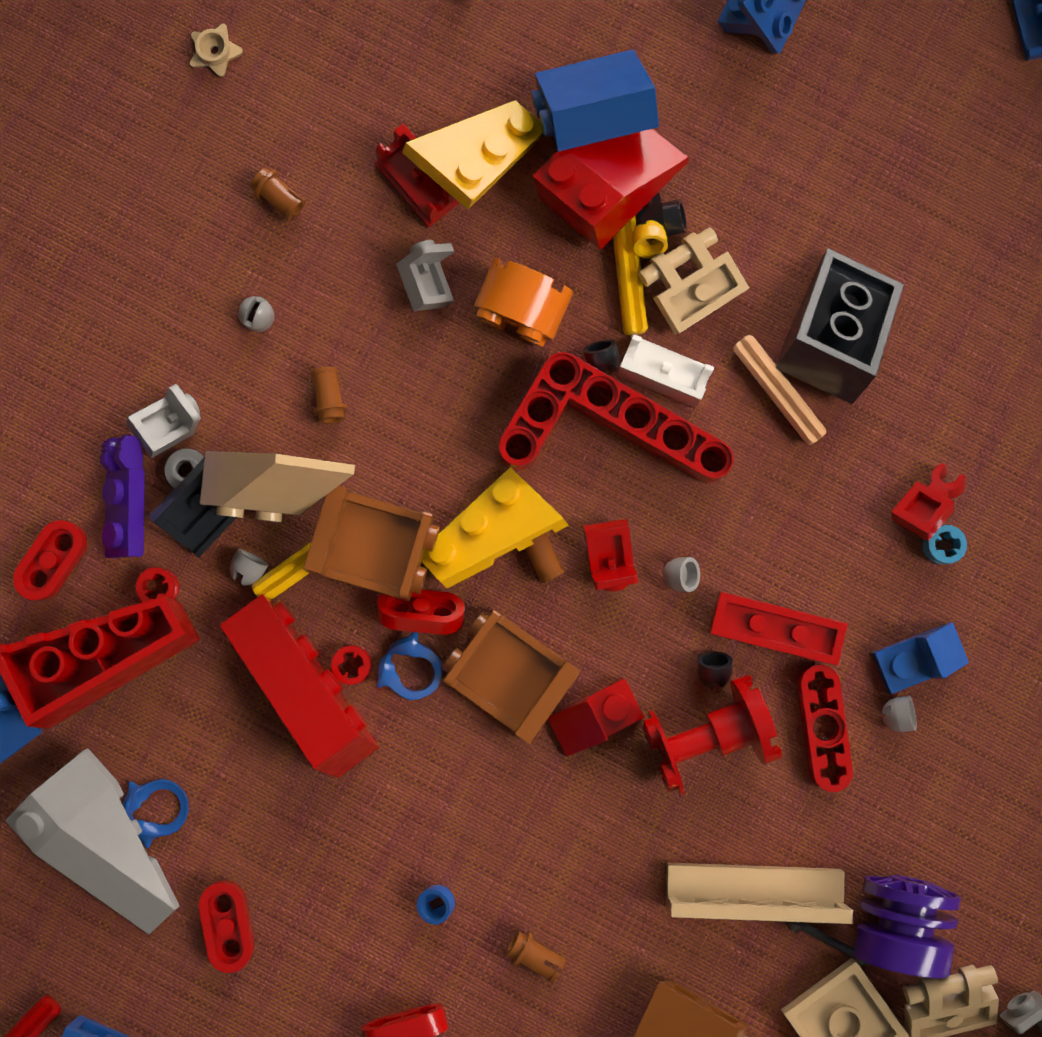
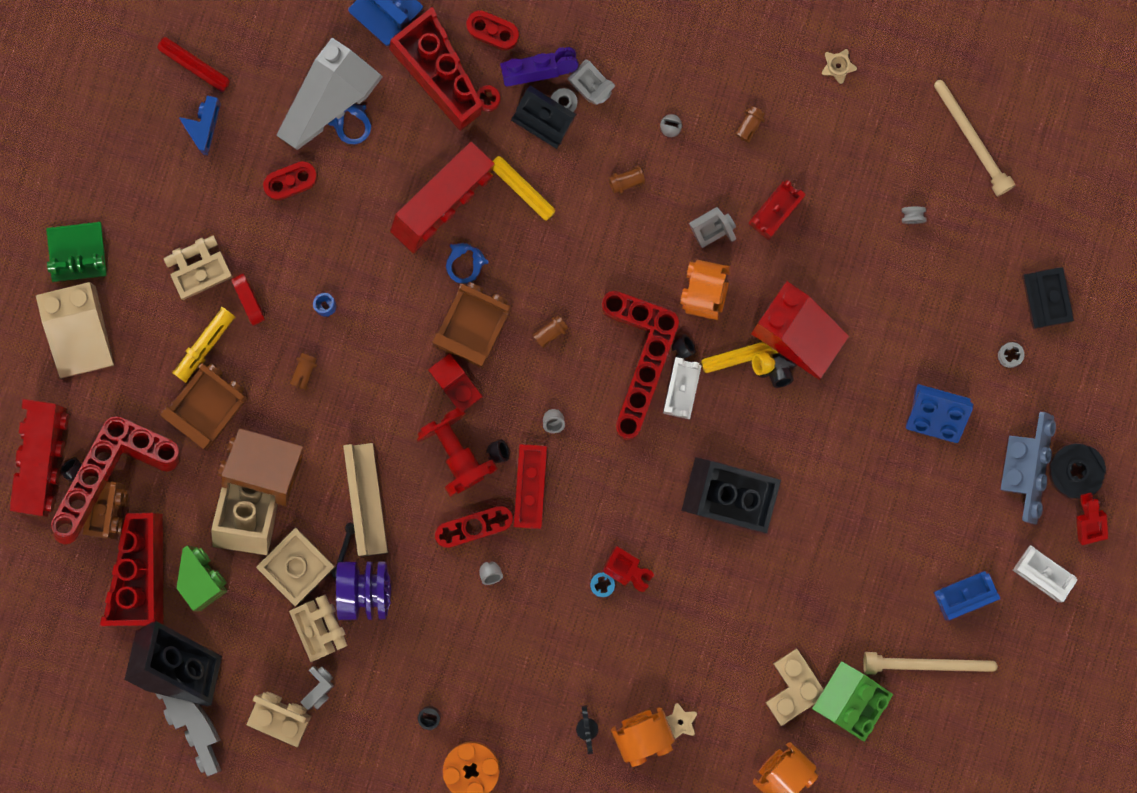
camera: 85 degrees right, 0 degrees up
(248, 565) = (511, 151): light grey hinge -> none
(267, 483) = (561, 153): tan slope -> none
(340, 658) = (463, 218): red bush -> none
(371, 544) = (537, 224): dark orange panel -> none
(425, 613) = (501, 262): red plate -> none
(476, 151) = (798, 244): yellow wing -> none
(498, 521) = (564, 298): yellow wing -> none
(595, 100) = (844, 311): blue brick -> none
(610, 555) = (557, 373): red bracket -> none
(701, 291) = (735, 402): tan plate -> none
(779, 390) = (682, 464): light nougat axle -> none
(920, 658) = (528, 581): blue slope -> none

